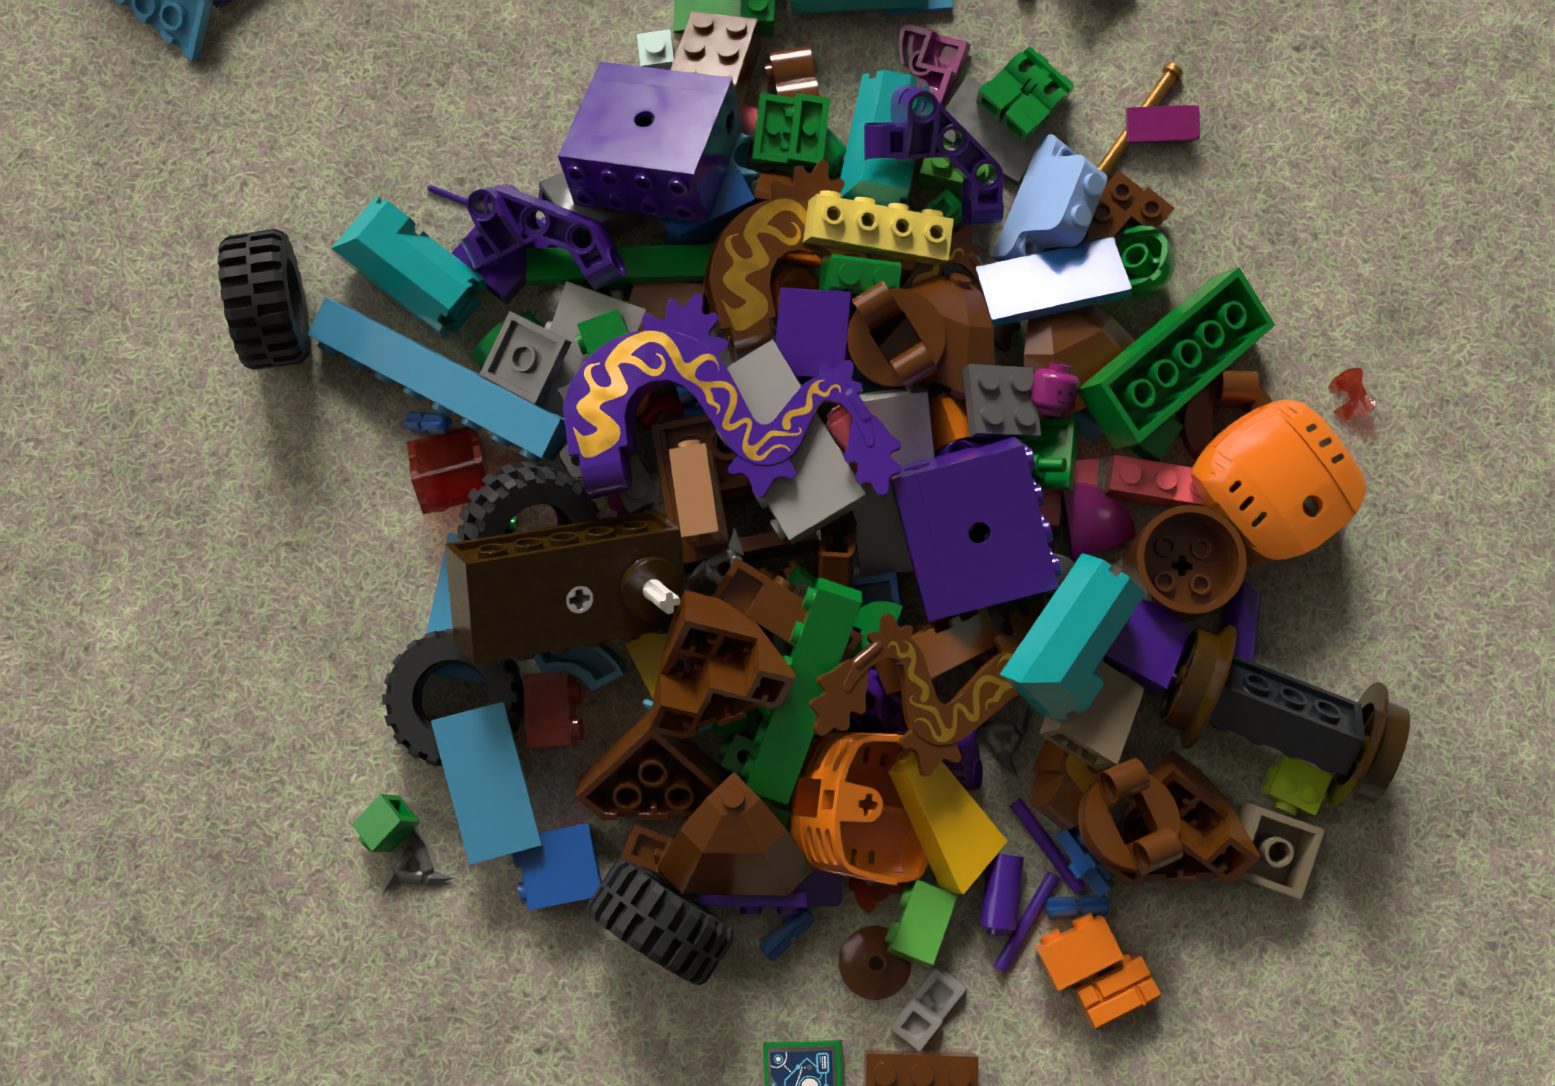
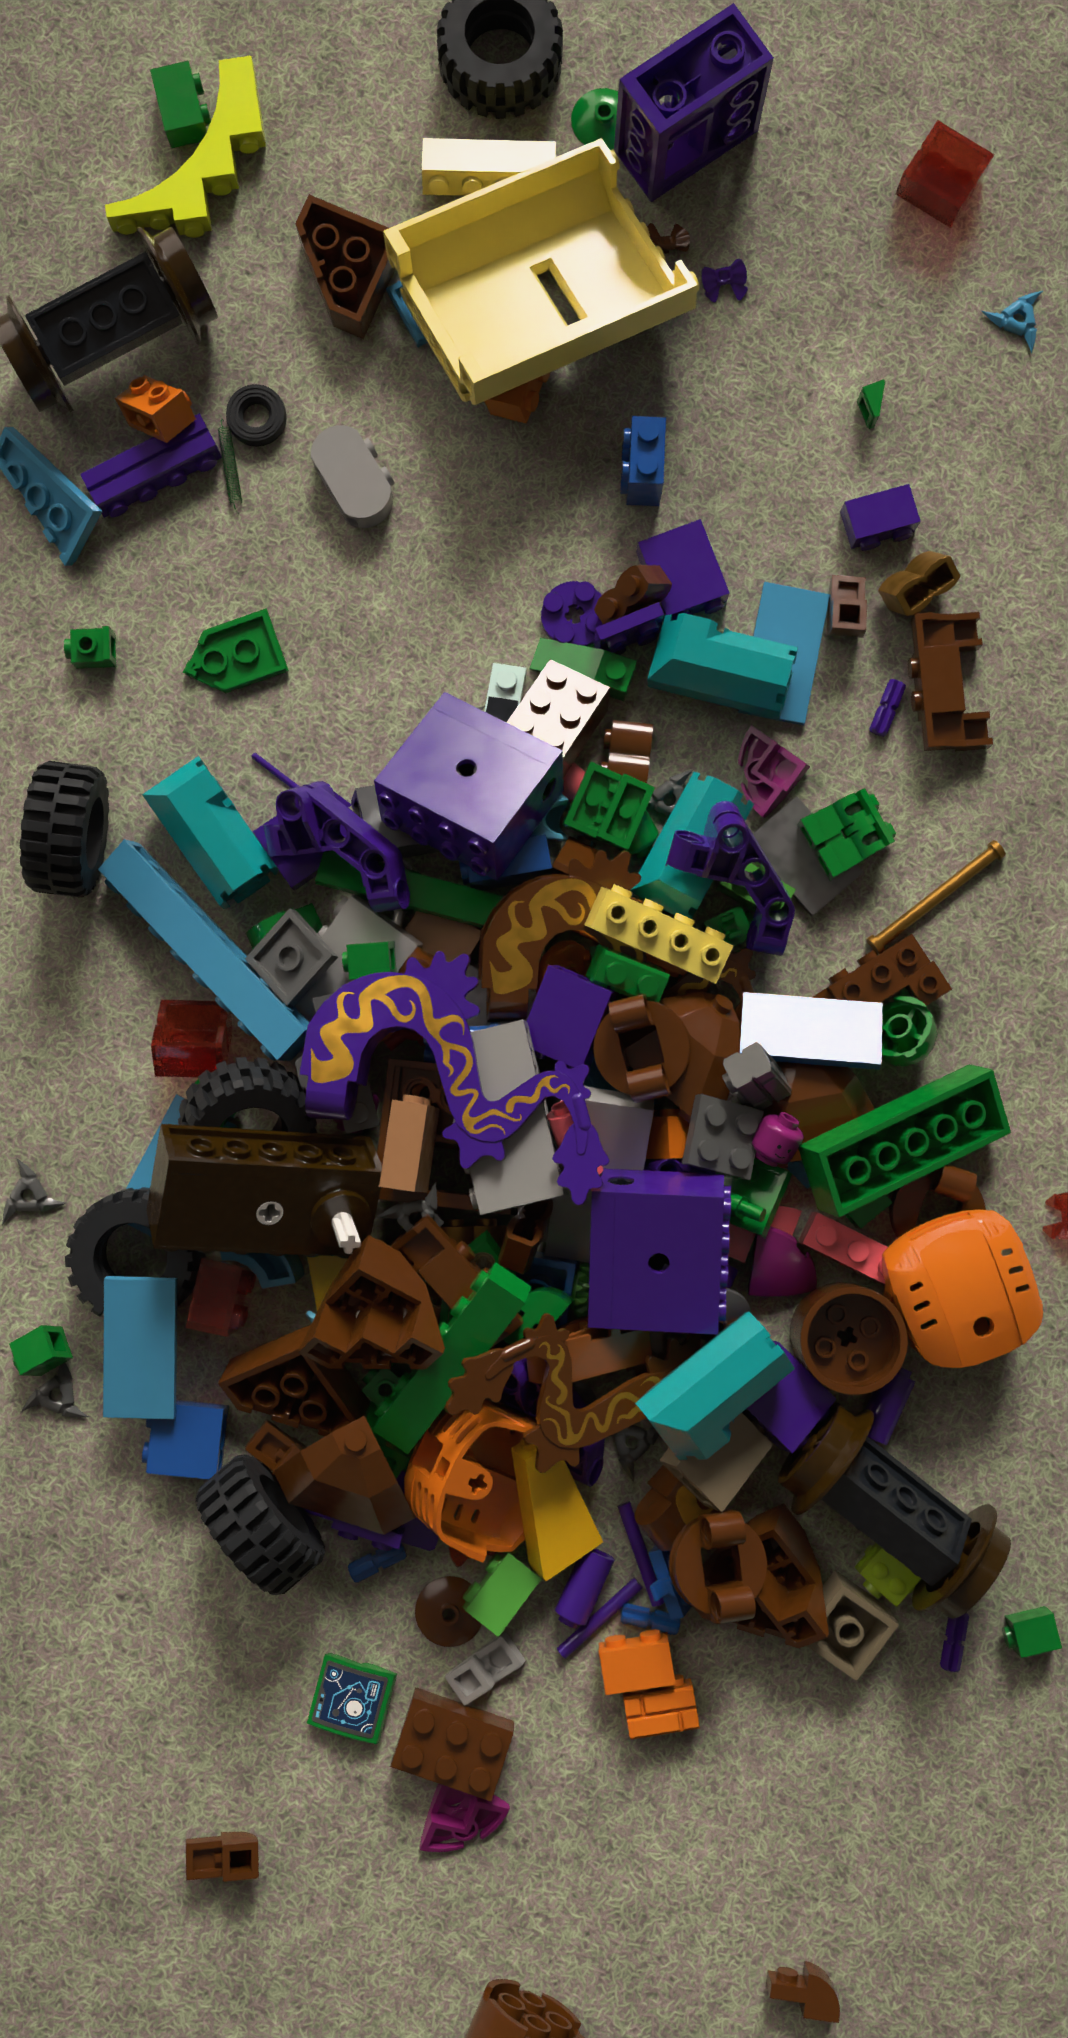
camera: 20 degrees right, 5 degrees up
(248, 136) = (100, 655): none -> green brick
(340, 681) = (40, 1199): none -> dark grey piece
(385, 96) = (237, 653): none -> green tile
(427, 422) = (186, 985): blue piece -> none
(846, 101) = (672, 786): none -> dark grey piece
(910, 600) = (580, 1291): none -> bright green gear
(1015, 335) = (755, 1077): none -> dark grey brick
(1052, 202) = (836, 949): light blue brick -> none
(1163, 124) = (968, 901): magenta slope -> none
(1381, 826) = (952, 1647): none -> dark purple piece
(1454, 802) = (1031, 1632): none -> green brick

